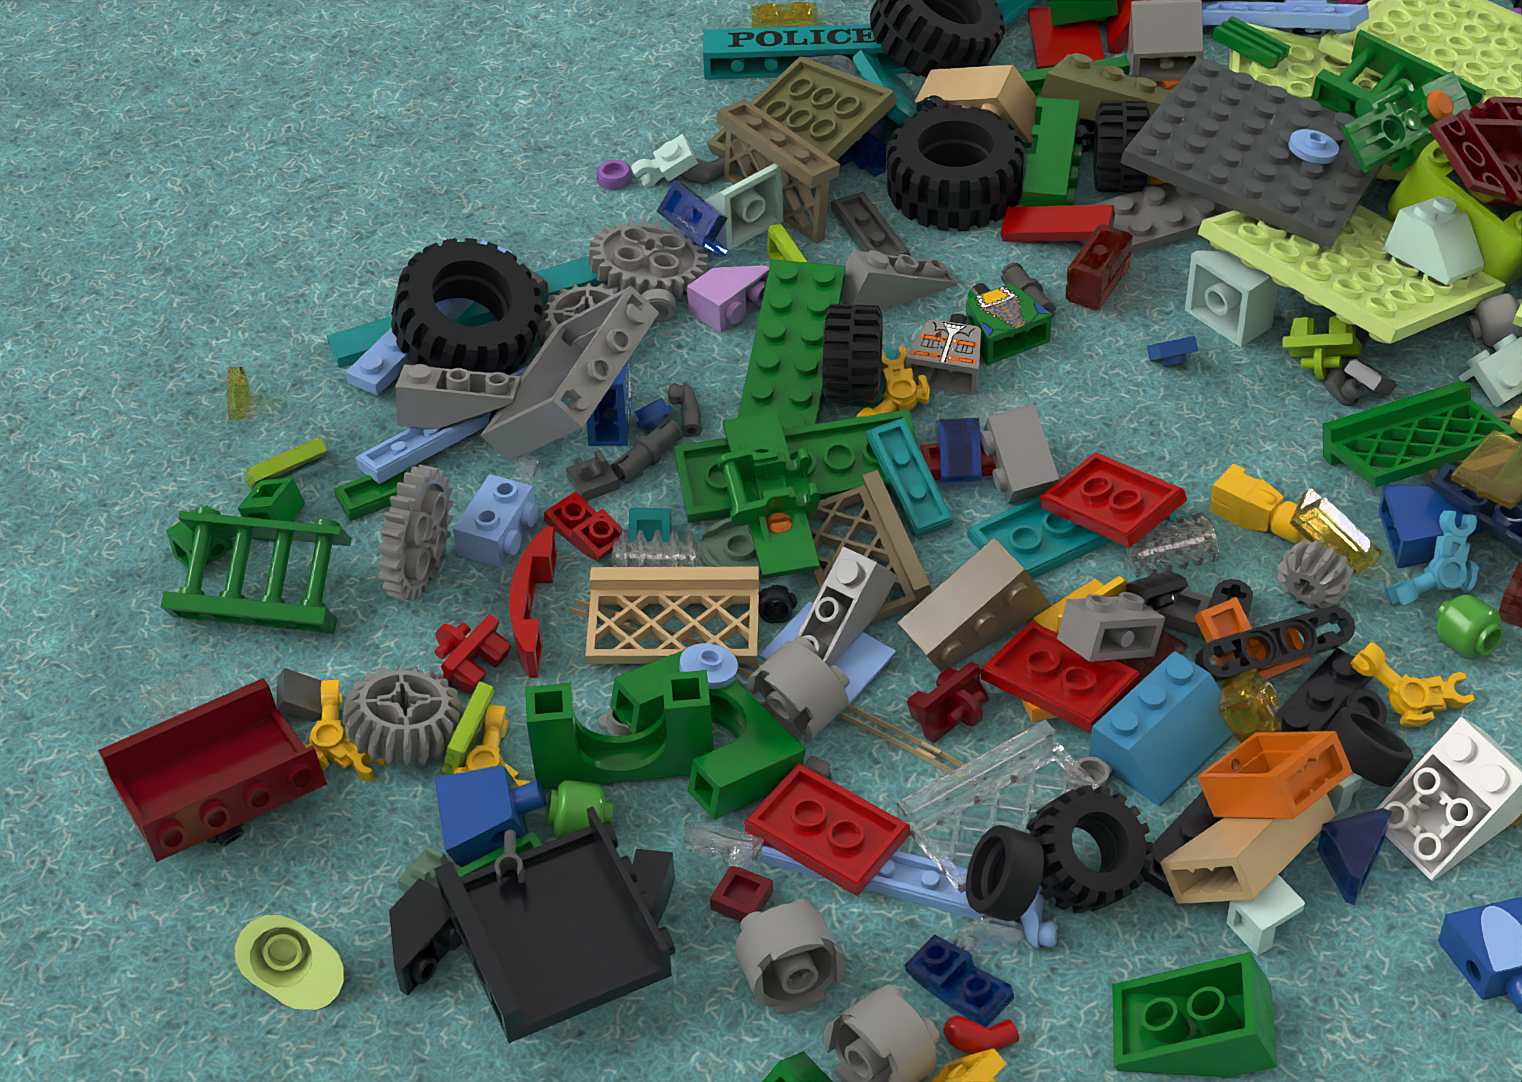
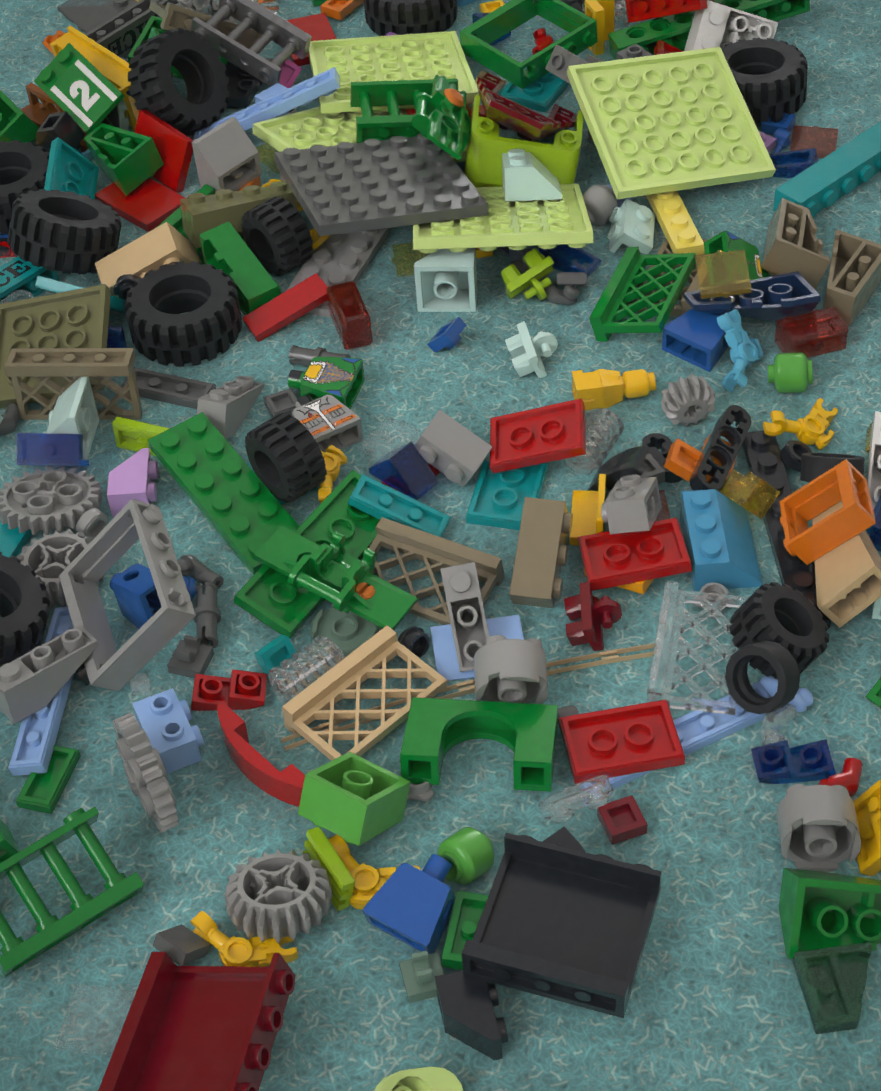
camera: 45 degrees left, 0 degrees up
(482, 642) = (257, 823): red hips -> none
(509, 859) = (499, 907): dark grey hand -> none
(539, 660) = (353, 798): none -> bright green brick
(569, 751) = (421, 816): green arch -> none
(717, 660) = (439, 704): light blue piece -> none
(789, 956) = (704, 825): light grey brick -> none
(943, 307) = (281, 402): none -> dark grey tile
(1232, 419) = (528, 350): none -> light aqua hips
(1251, 42) = (284, 129): green tile -> none
(1313, 146) = (410, 162): light blue piece -> none
(1321, 520) = (668, 367): clear yellow panel -> none
(1413, 353) = (566, 263): none -> clear blue slope

